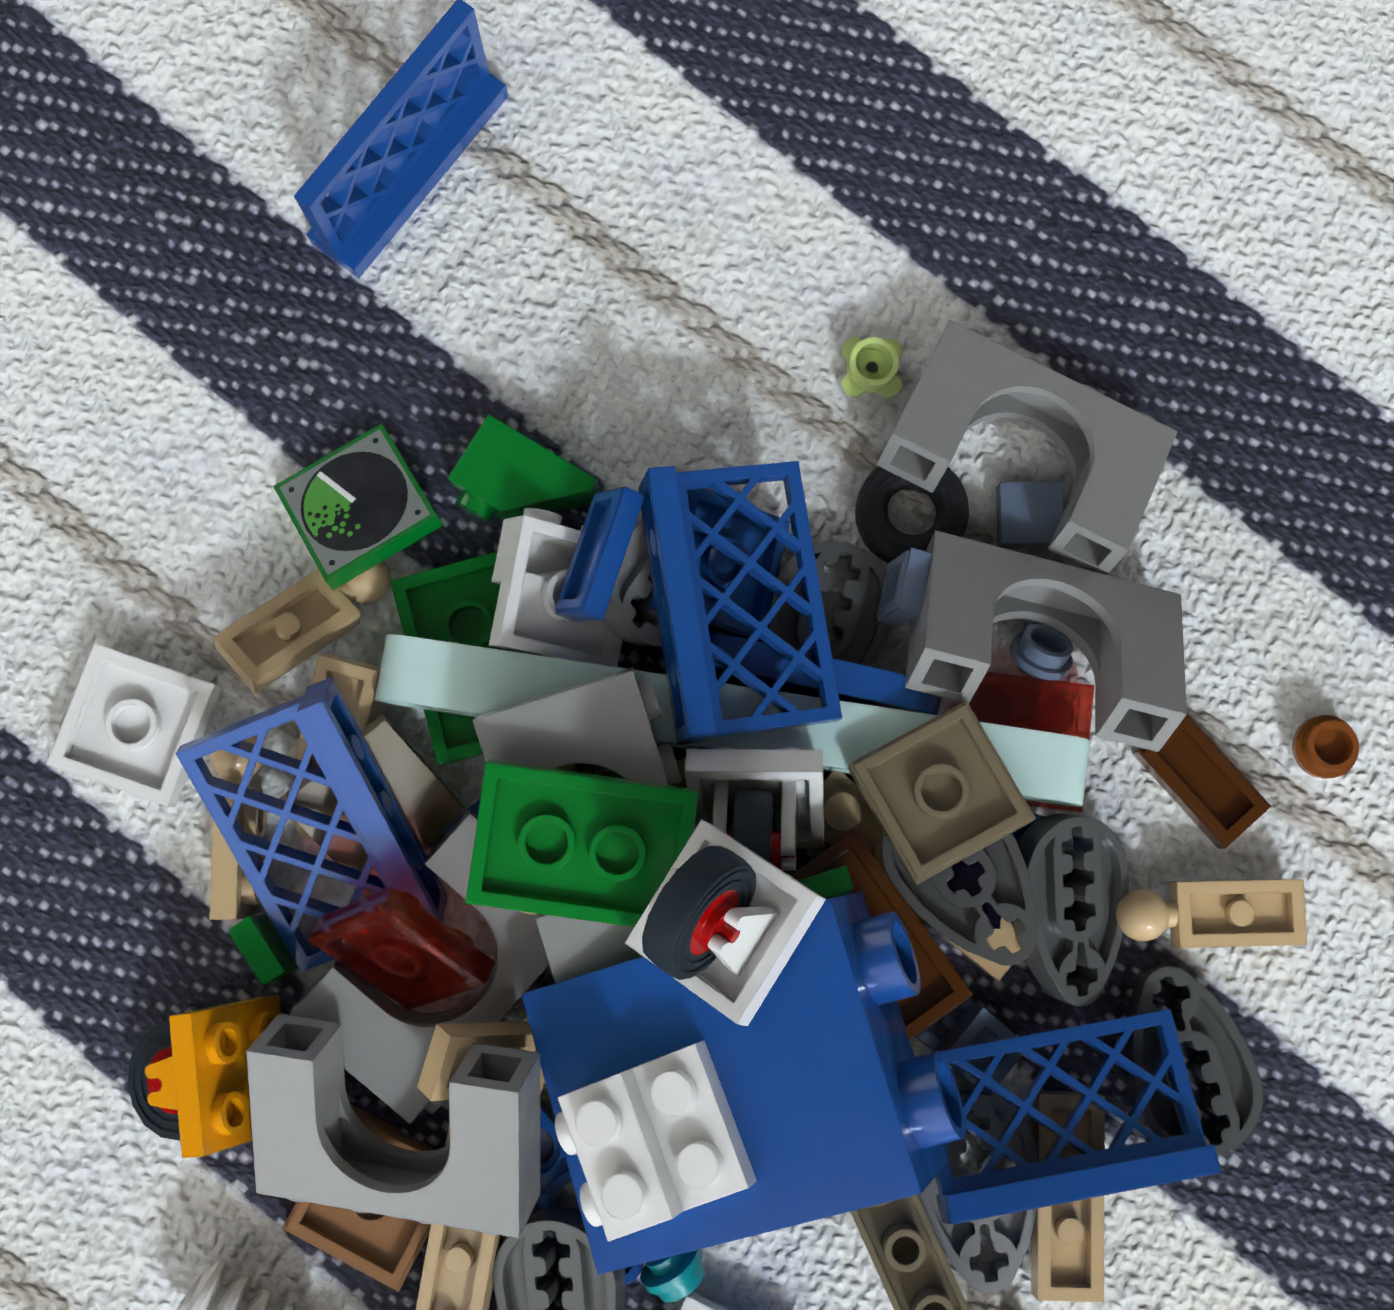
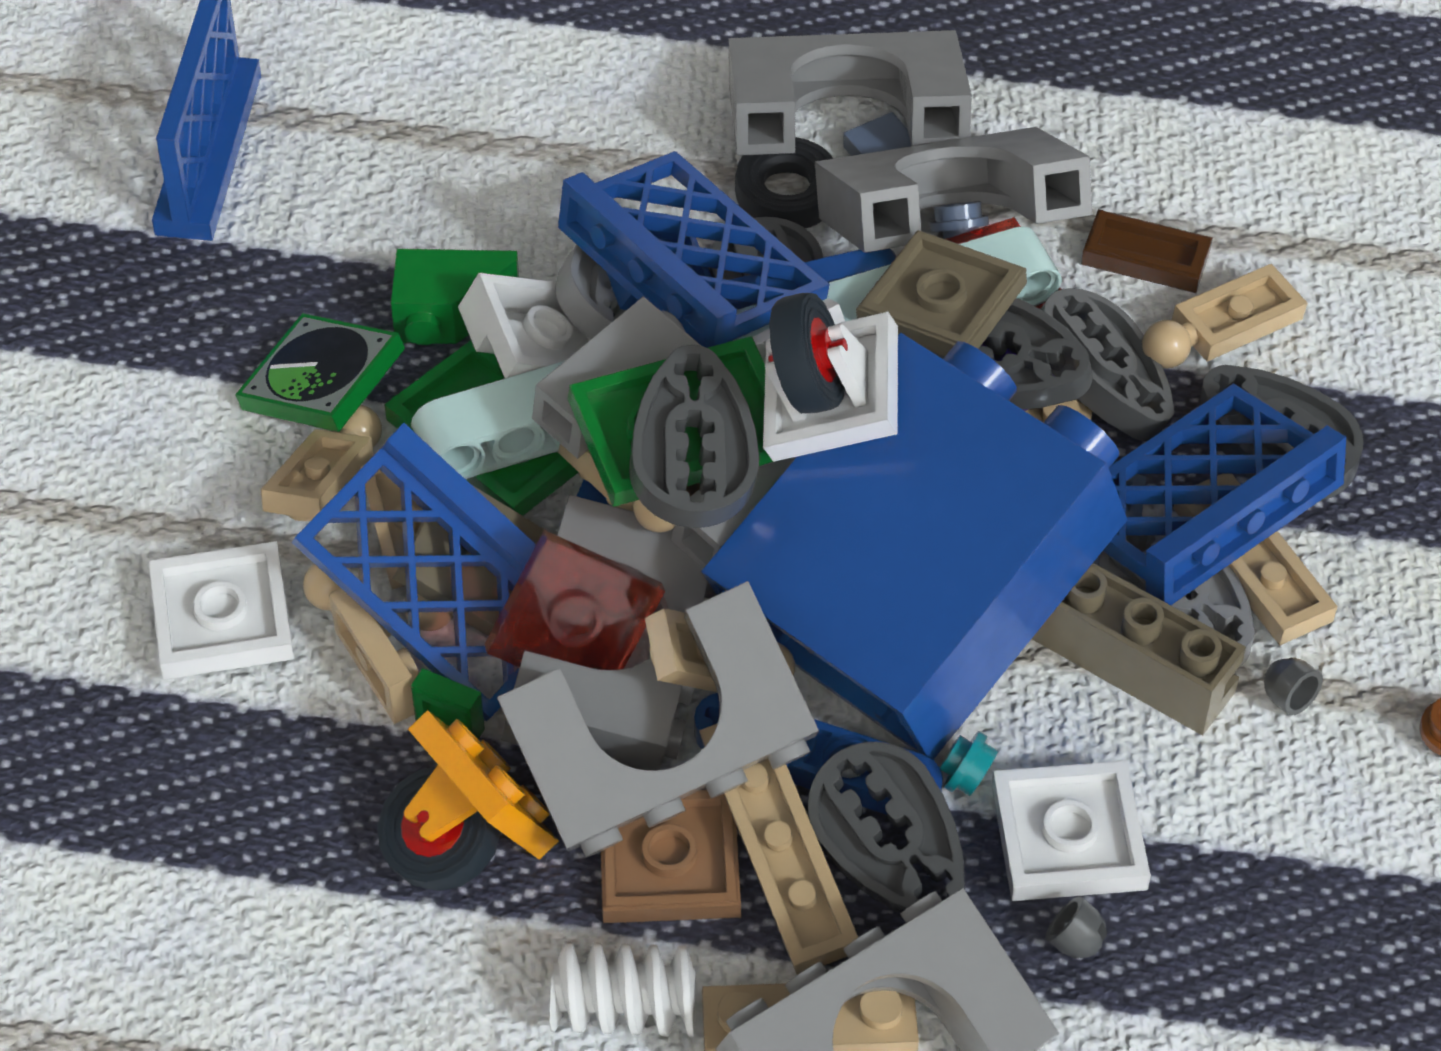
camera: 25 degrees left, 30 degrees down
(594, 922) = (661, 445): none -> dark grey piece
(599, 554) = (558, 275): blue tile -> none
(653, 1142) = (879, 570): white plate -> none
(881, 352) = (687, 108): yellowish green plate -> none
(904, 587) = (817, 210): sand blue tile -> none
(1325, 746) = (1224, 183): dark orange plate -> none

